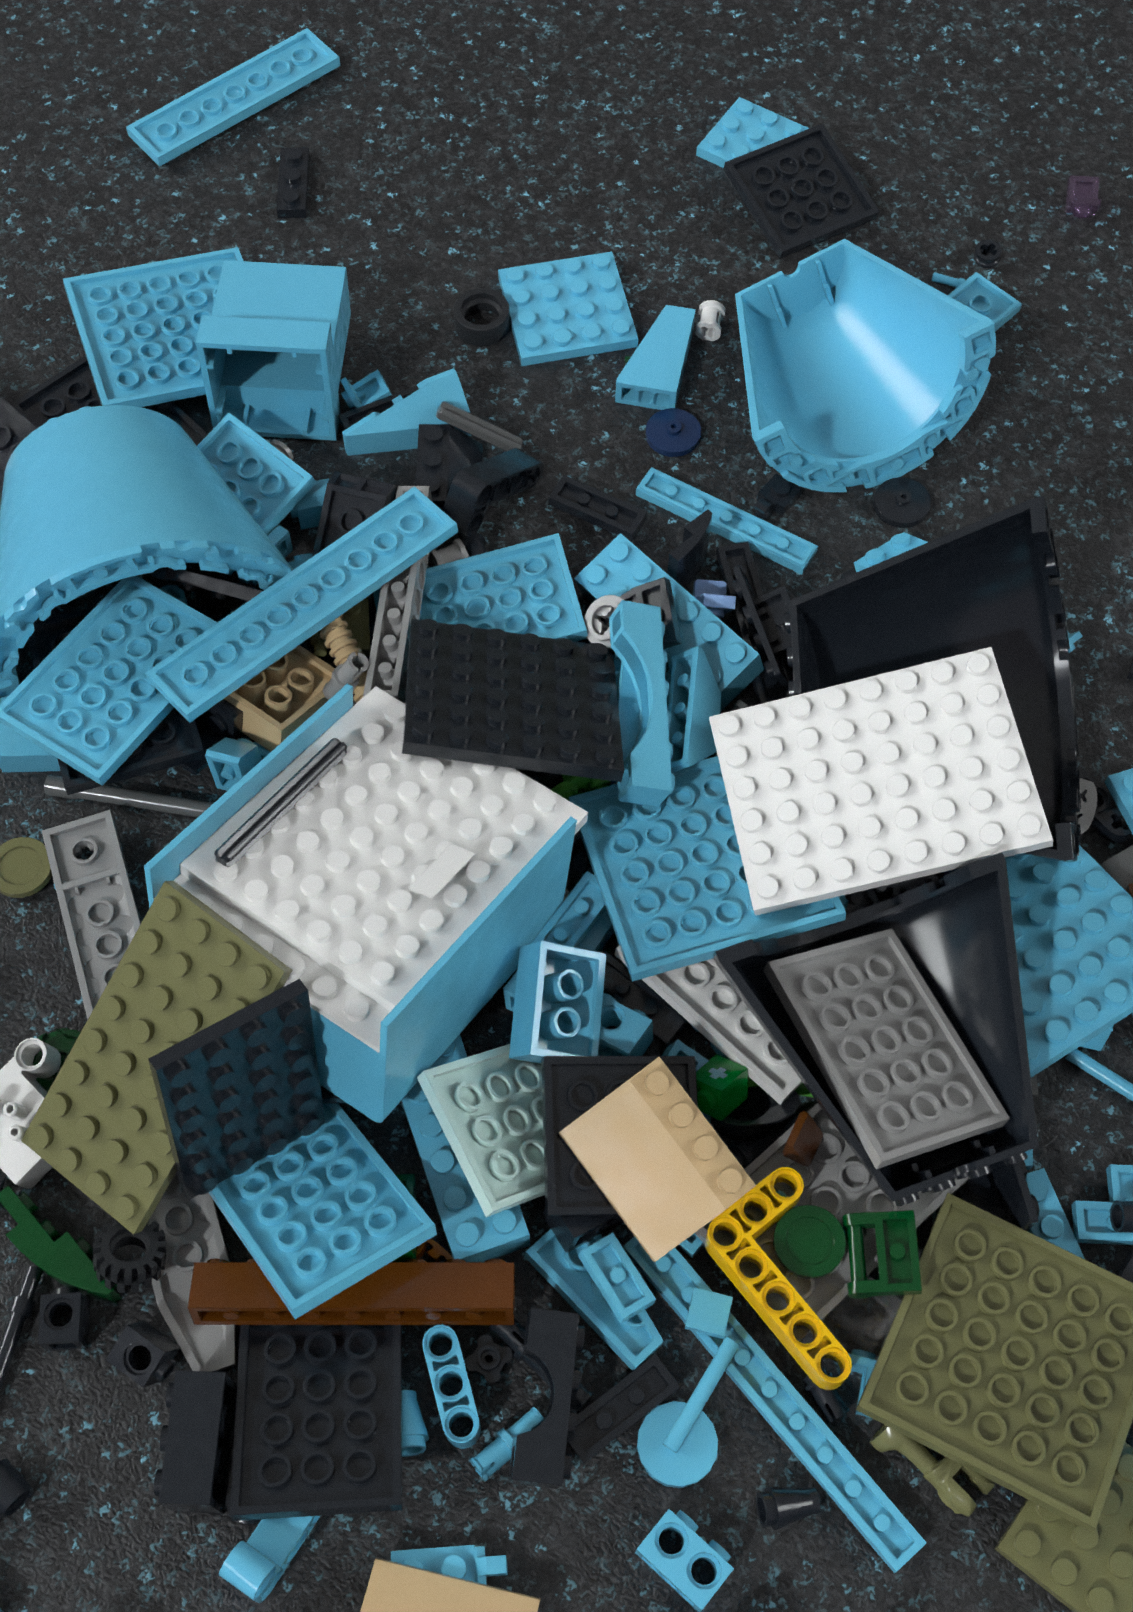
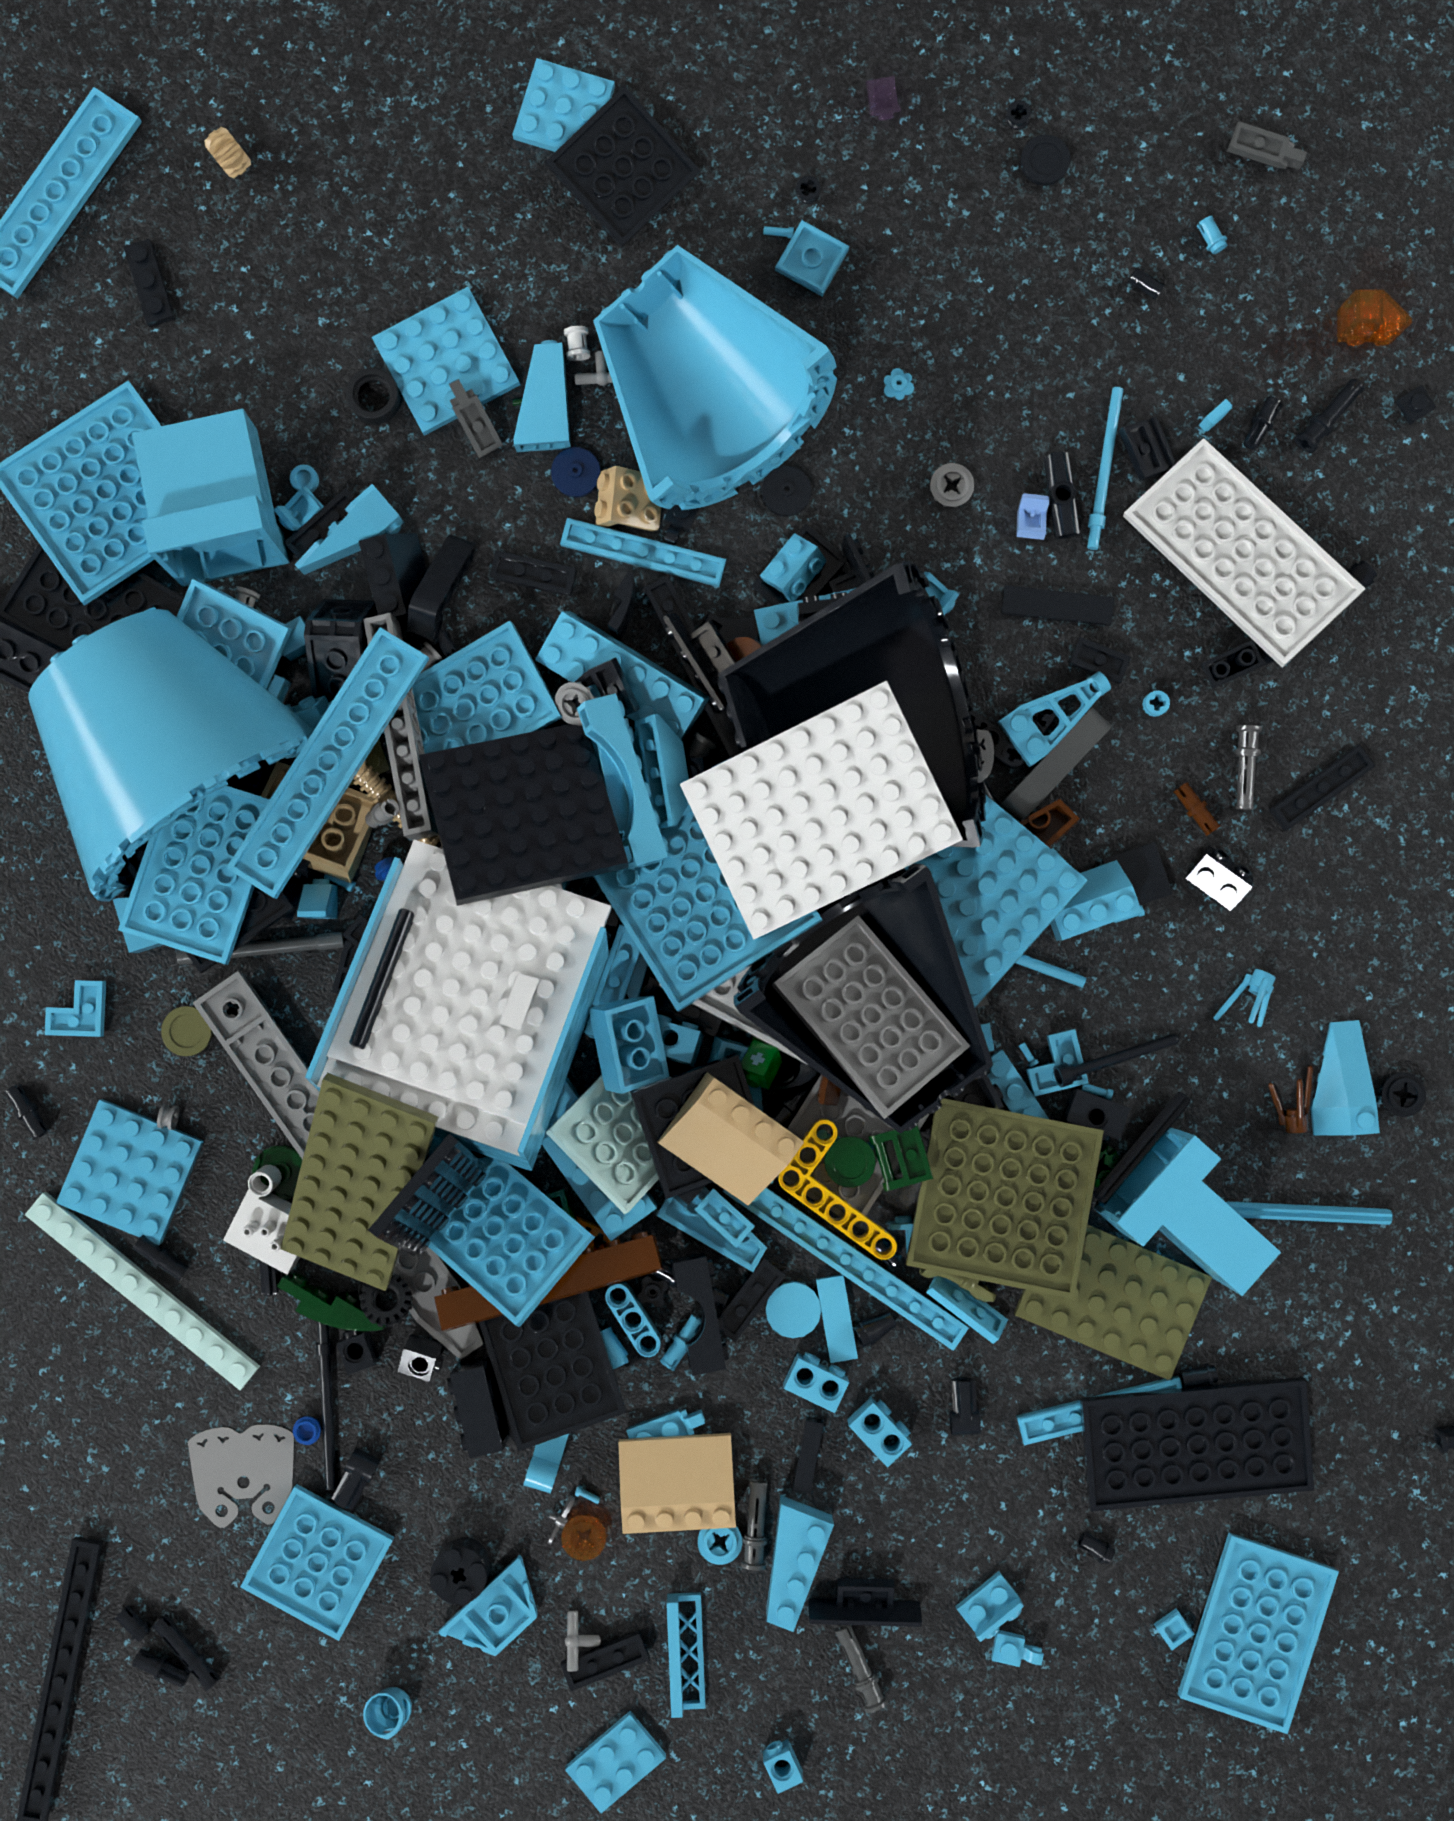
camera: 15 degrees left, 25 degrees up
(385, 366) = (304, 477): none -> medium azure tile
(413, 96) = (227, 152): none -> tan gear
(478, 427) = (388, 525): dark grey axle -> none
(580, 356) = (474, 420): none -> dark grey hinge
(701, 1394) = (801, 1277): medium azure bar -> none
(708, 1313) = (793, 1223): medium azure tile -> none
(713, 596) = (651, 640): light blue bracket -> none
(725, 462) = (625, 500): none -> tan bracket
(726, 356) = (601, 376): none -> light grey piece
(736, 1477) = (836, 1318): none -> medium azure tile
(928, 1513) = (969, 1309): none -> medium azure plate
(1049, 437) = (899, 391): none -> medium azure plant
(1076, 1186) = (1032, 1062): none -> medium azure piece
(1095, 528) = (952, 473): none -> light grey gear

